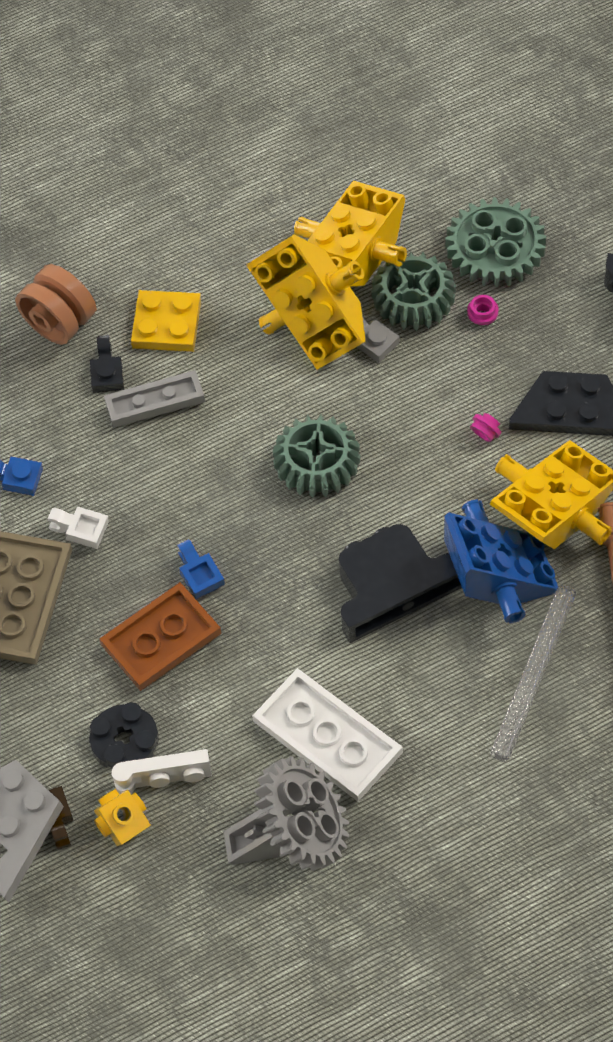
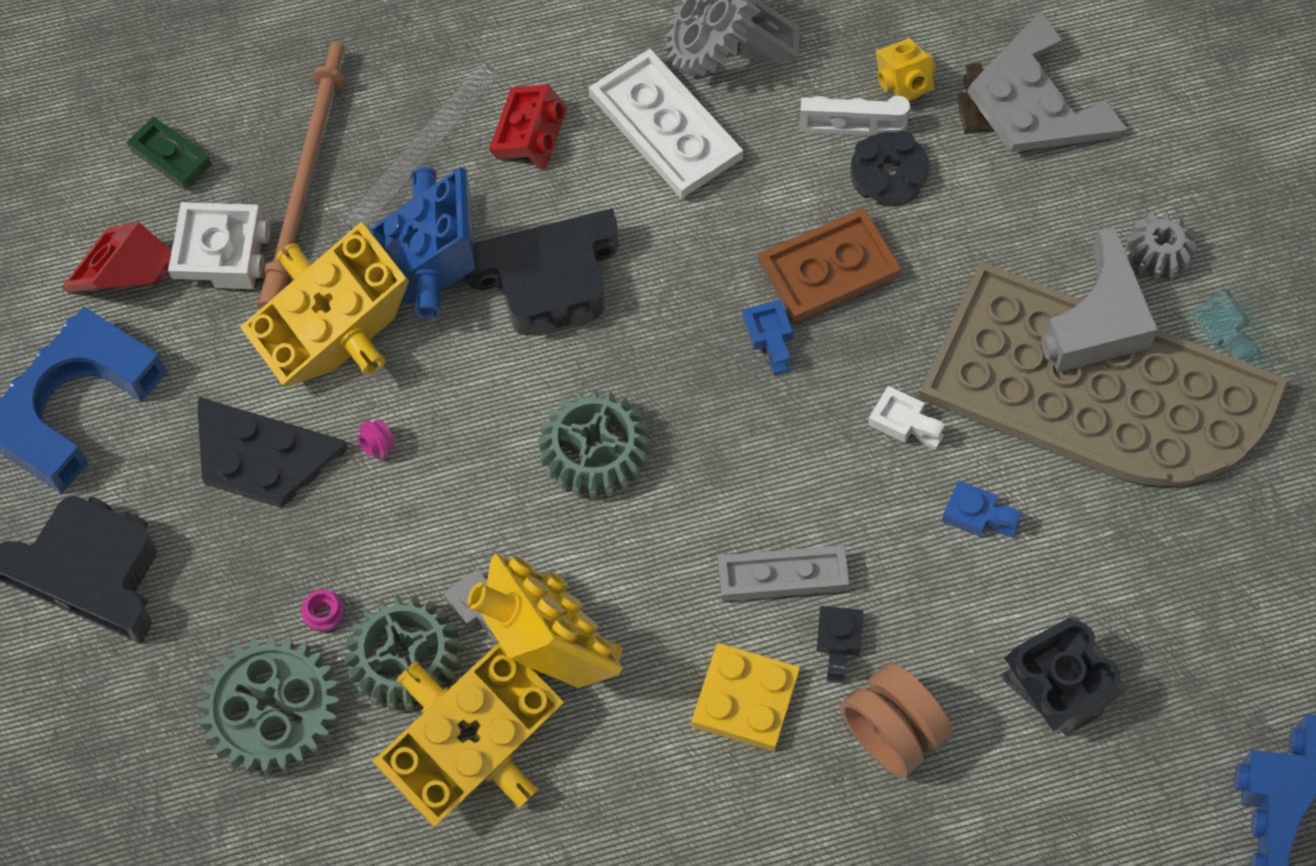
camera: 170 degrees left, 5 degrees up
(446, 705) = (529, 124): none -> red bracket

